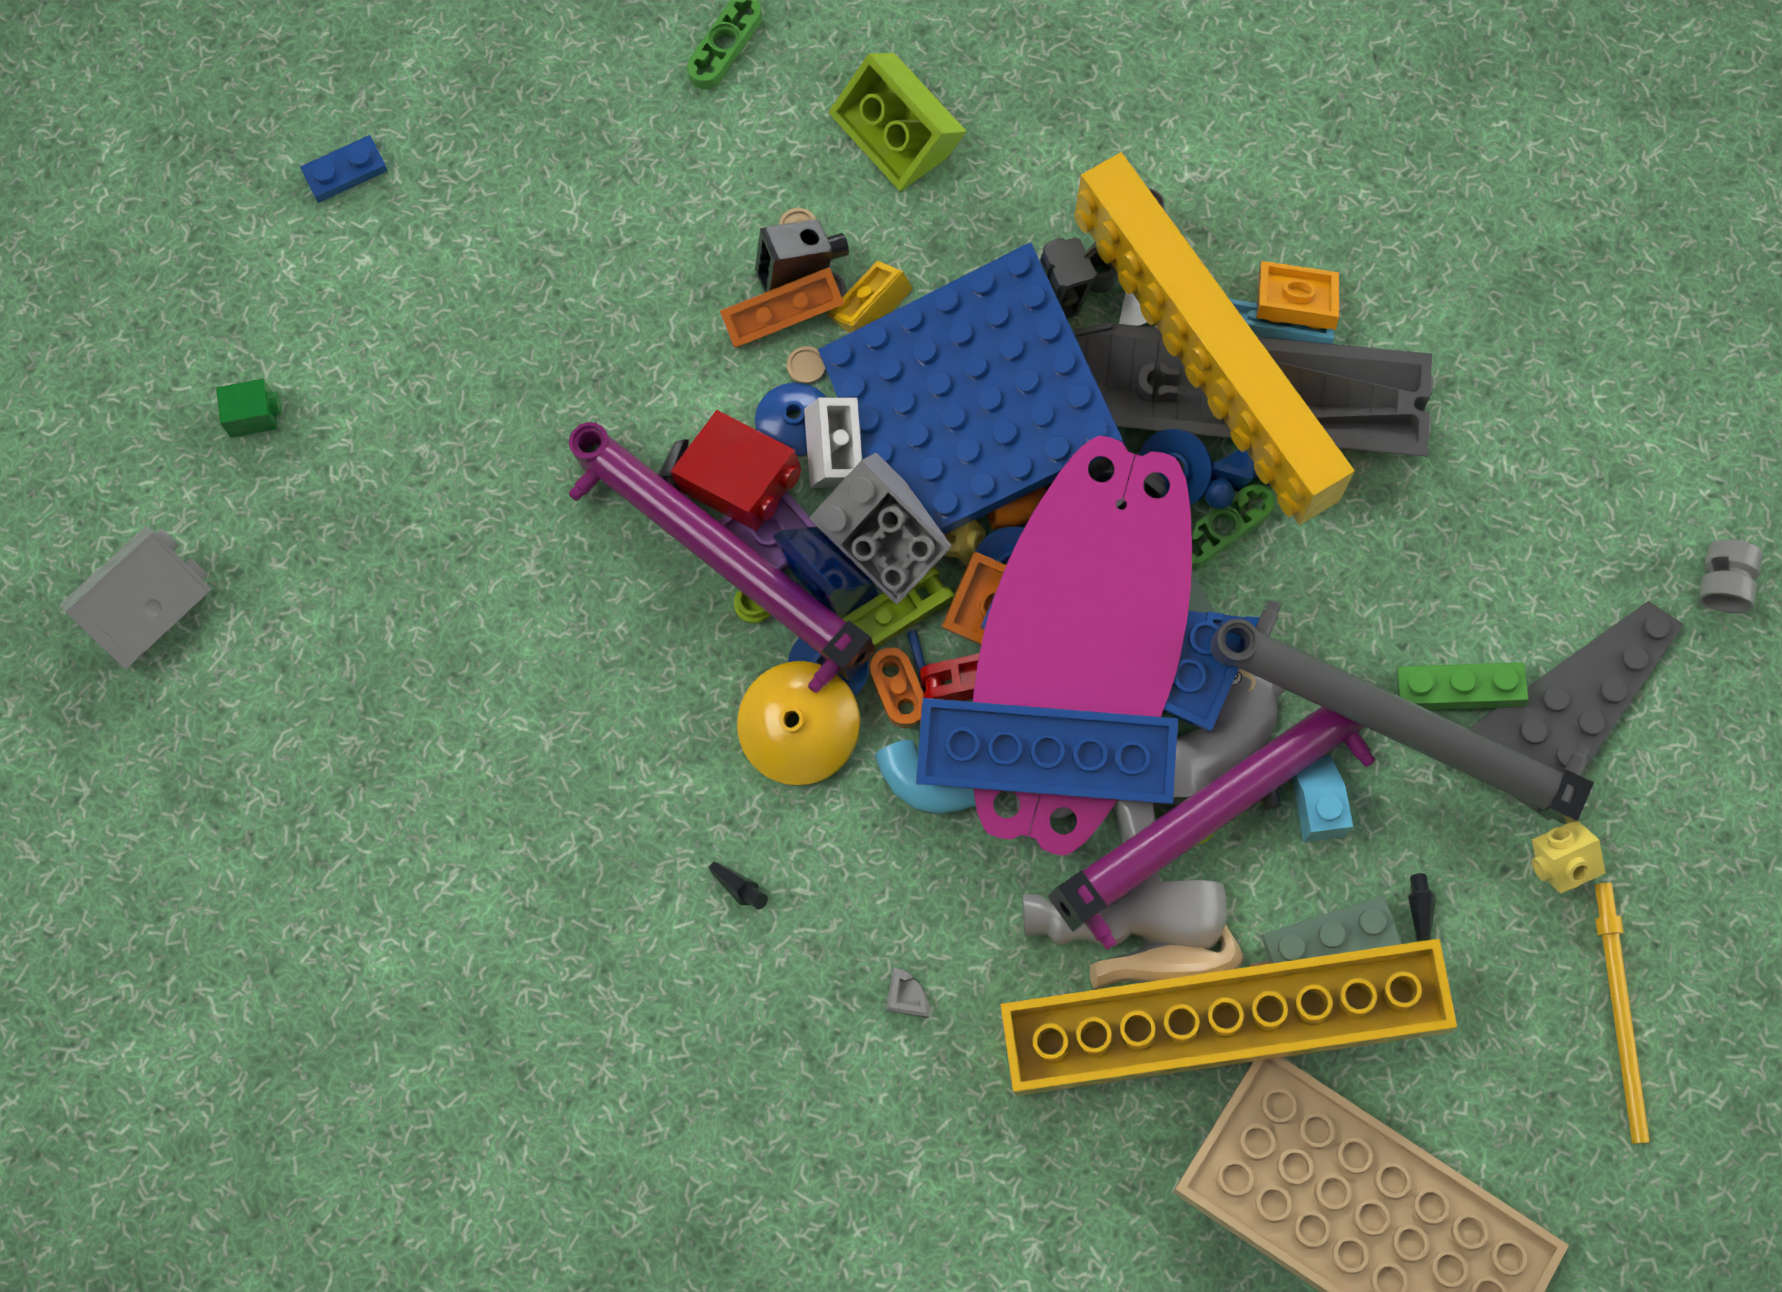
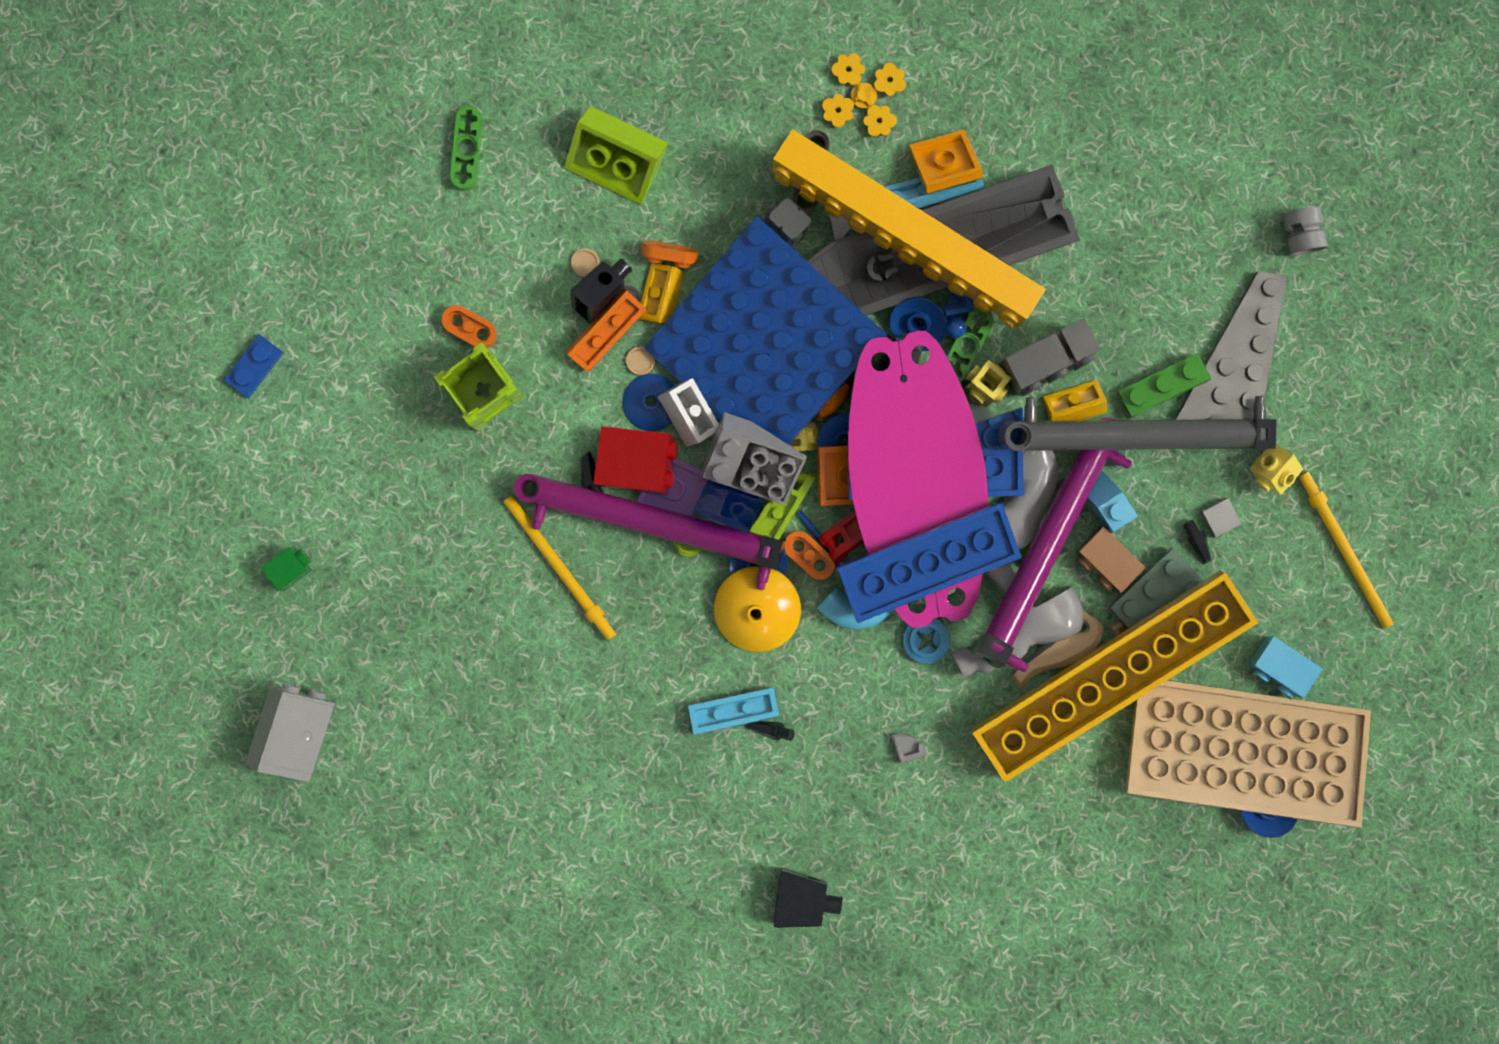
camera: 30 degrees left, 15 degrees up
(589, 632) = (593, 613): none -> yellow bar
(593, 296) = (463, 382): none -> lime container
(620, 237) = (470, 326): none -> orange plate
(666, 1128) = (803, 900): none -> black torso
(702, 837) = (733, 711): none -> medium azure plate
(890, 247) = (658, 251): none -> orange plate
(993, 885) = (927, 654): none -> dark azure gear
(1228, 577) = (993, 377): none -> light yellow brick
(1232, 184) = (864, 95): none -> yellow plant
(1289, 873) = (1109, 561): none -> medium nougat brick
(1318, 581) = (1050, 358): none -> dark grey piece
(1347, 654) = (1076, 402): none -> yellow slope
(1466, 890) = (1220, 517): none -> light grey tile
(1470, 1128) = (1284, 667): none -> medium azure brick

